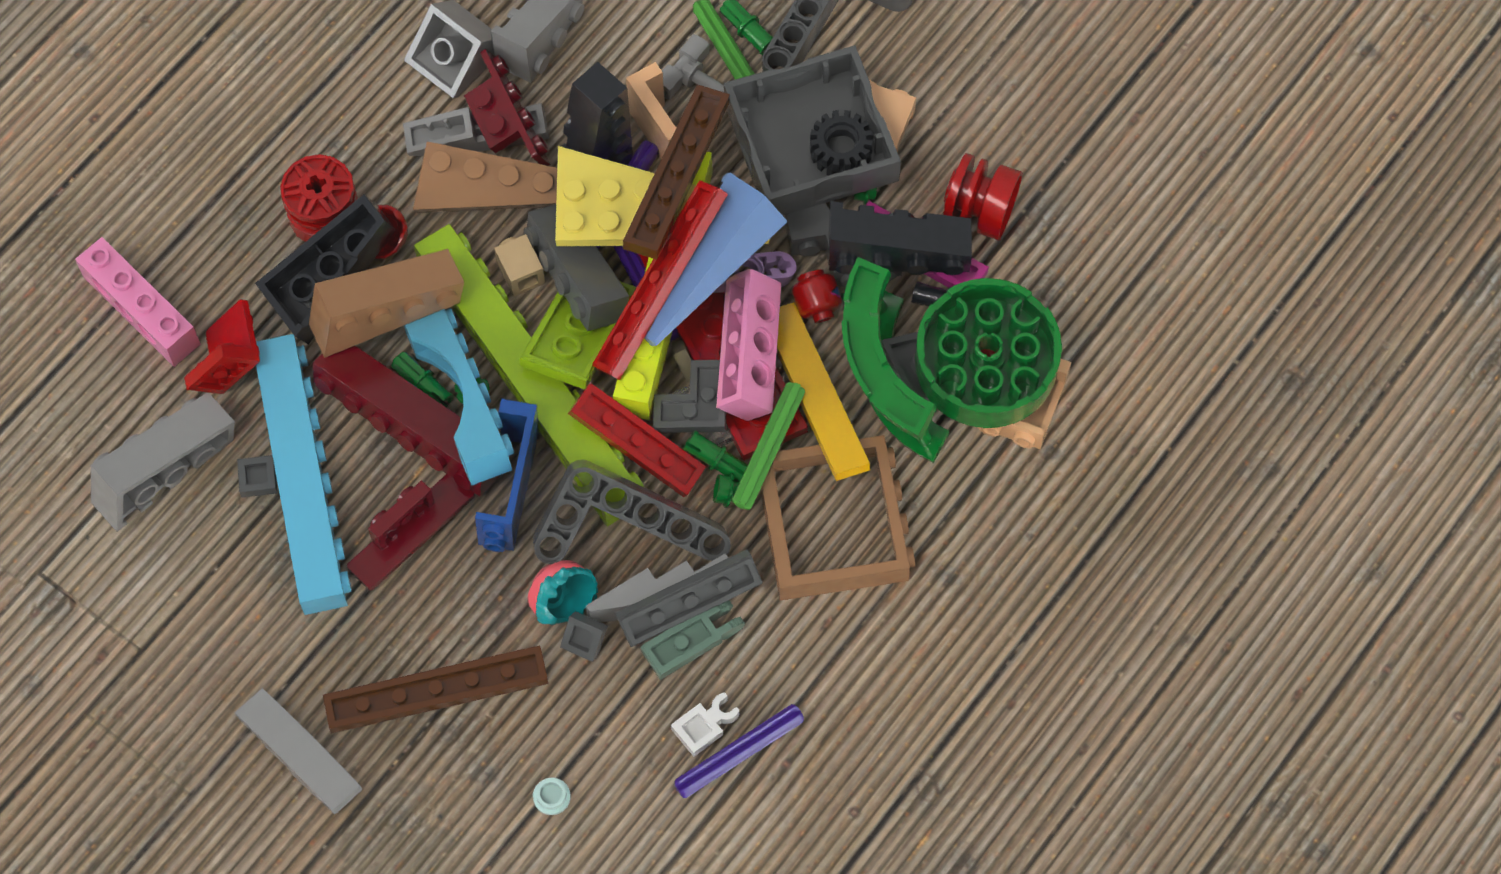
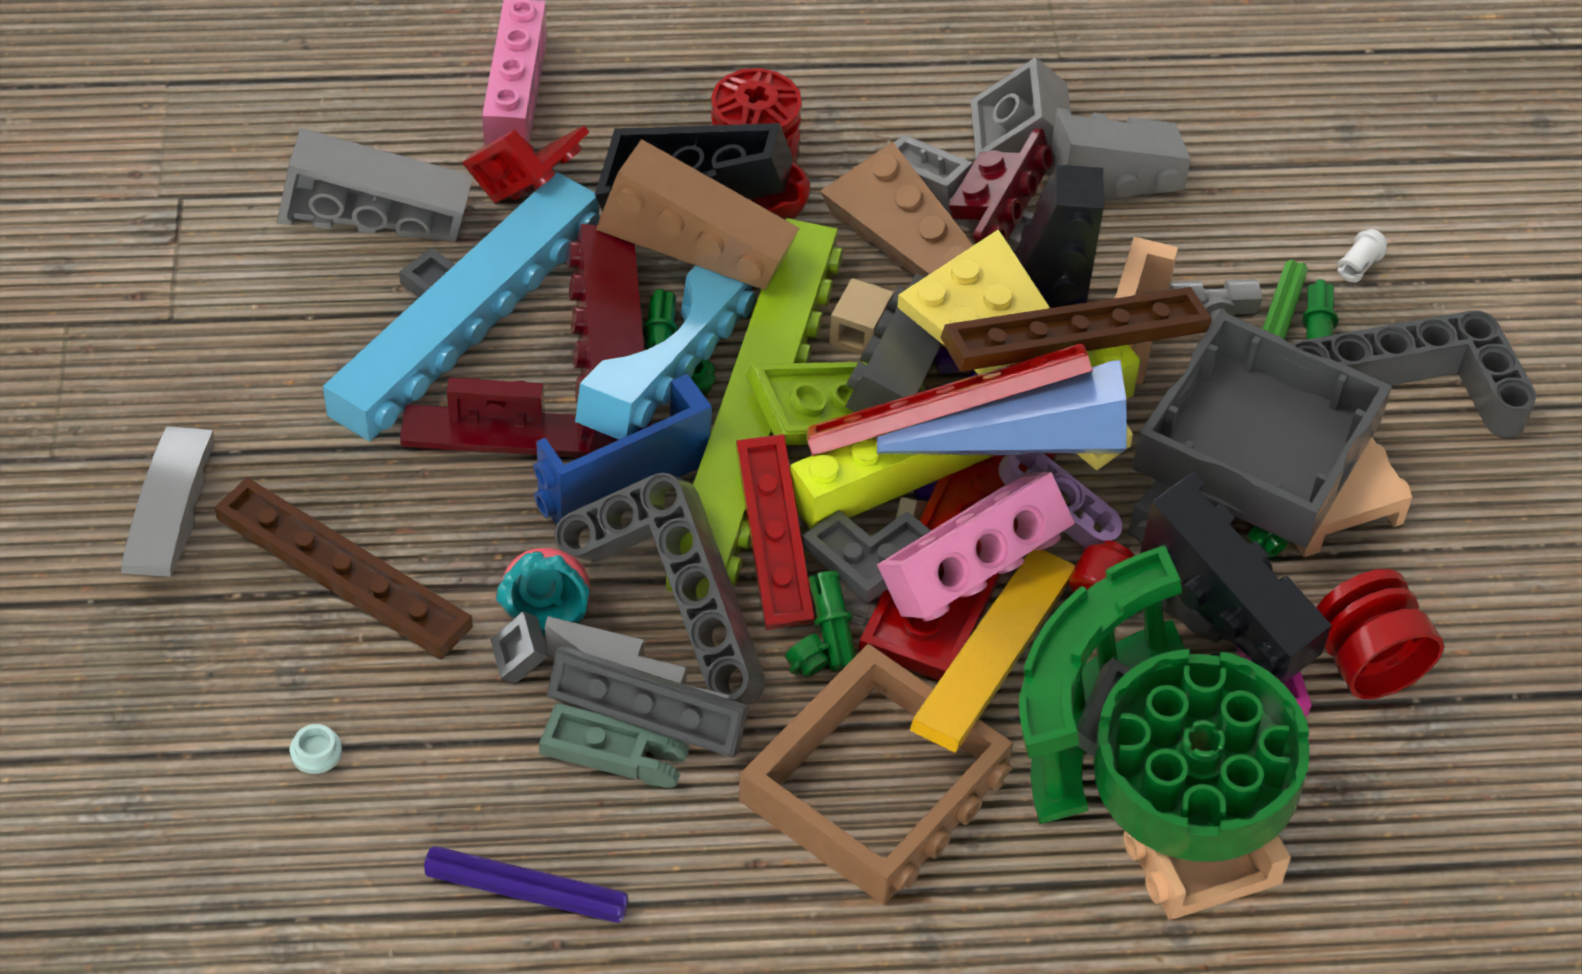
camera: 45 degrees right, 15 degrees down
(700, 727) = (518, 824): white plate -> none
(768, 446) = (885, 642): bright green axle -> none
(840, 126) = (1286, 441): black tyre -> none

